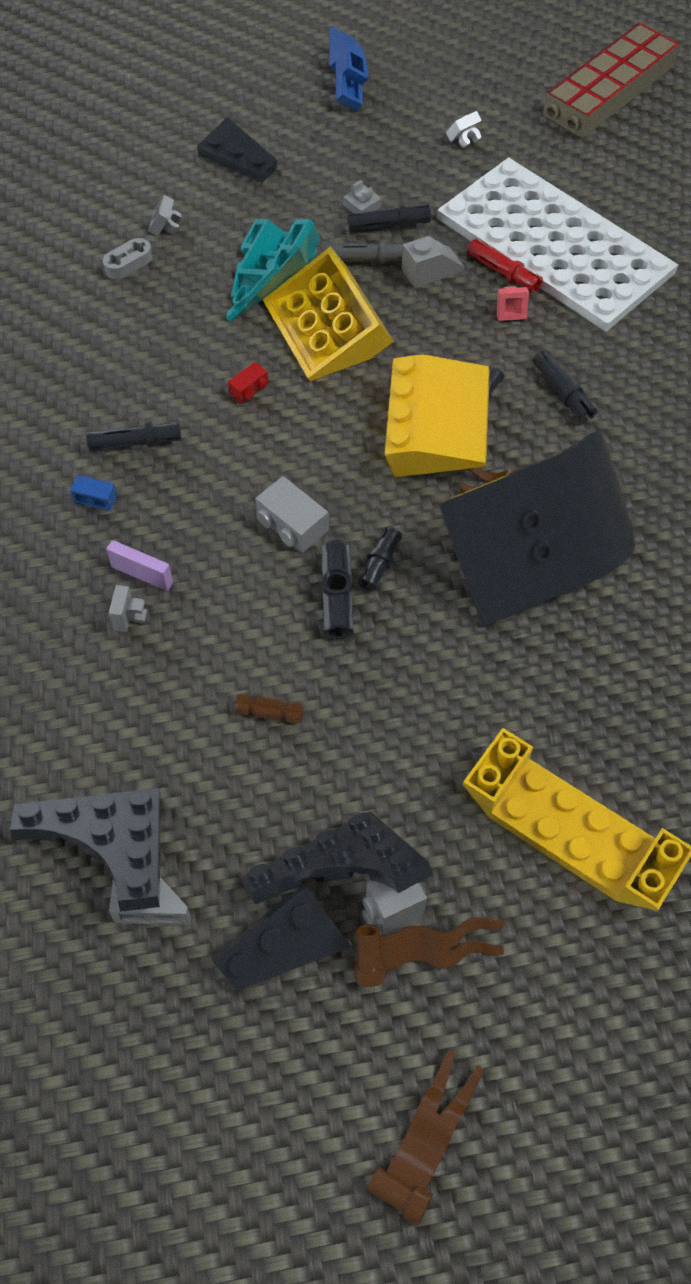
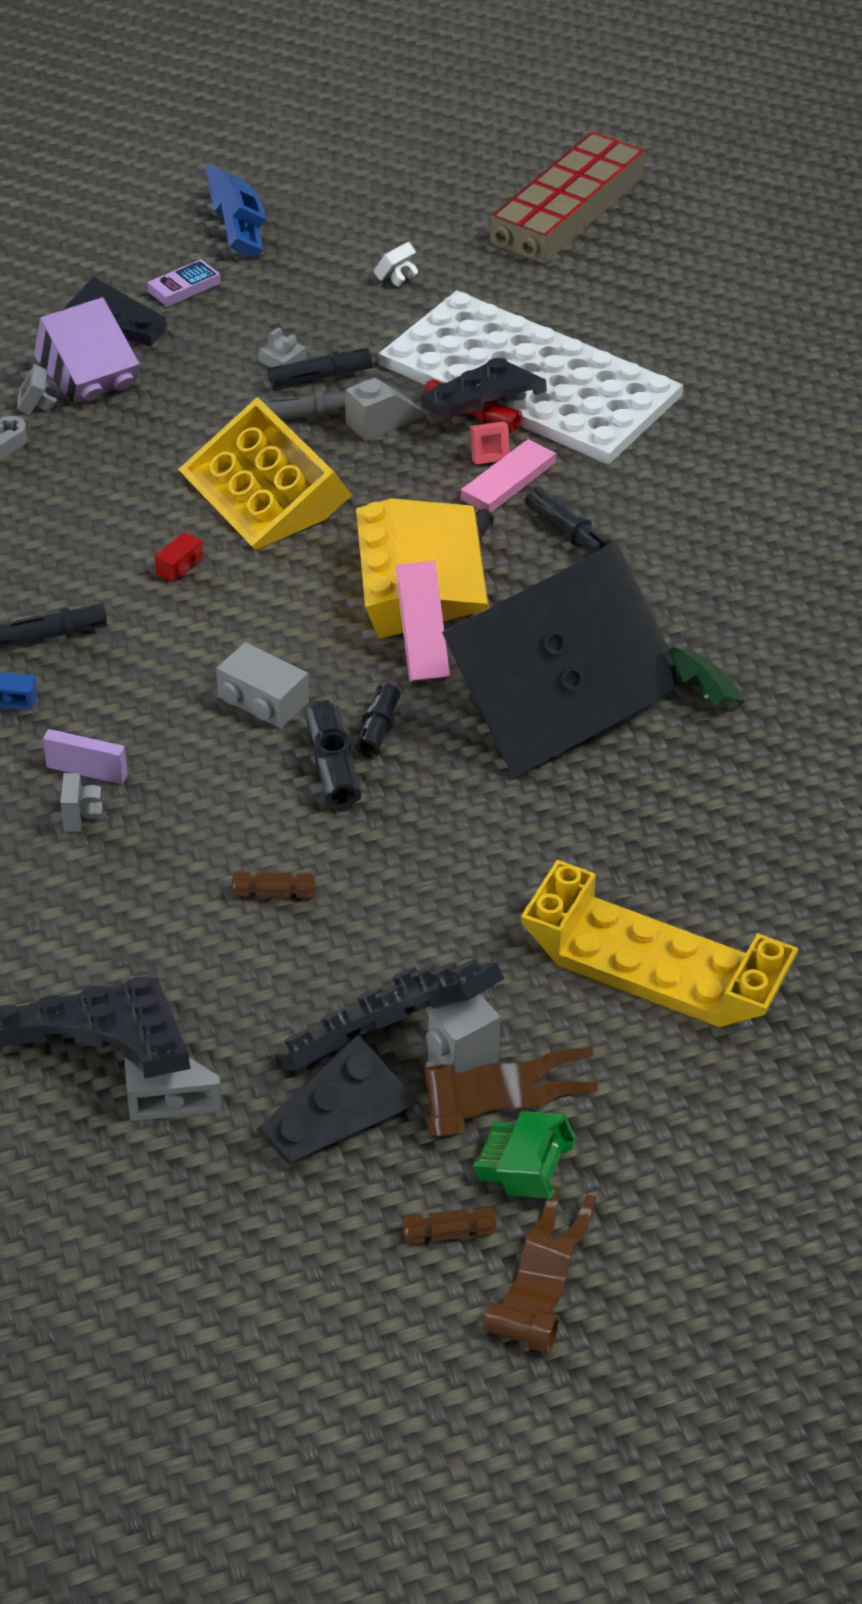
camera: 10 degrees left, 15 degrees down
(207, 186) = (85, 351): none -> lavender slope
(270, 261) = (183, 422): teal wedge -> none
(296, 128) = (183, 283): none -> lavender tile
(356, 1076) = (448, 1225): none -> reddish brown axle
(428, 472) = (422, 621): none -> bright pink tile
(430, 1017) = (525, 1153): none -> green piece
(517, 250) = (489, 382): none -> black wing
(522, 335) = (508, 476): none -> bright pink tile
(651, 544) = (699, 671): none -> dark green slope

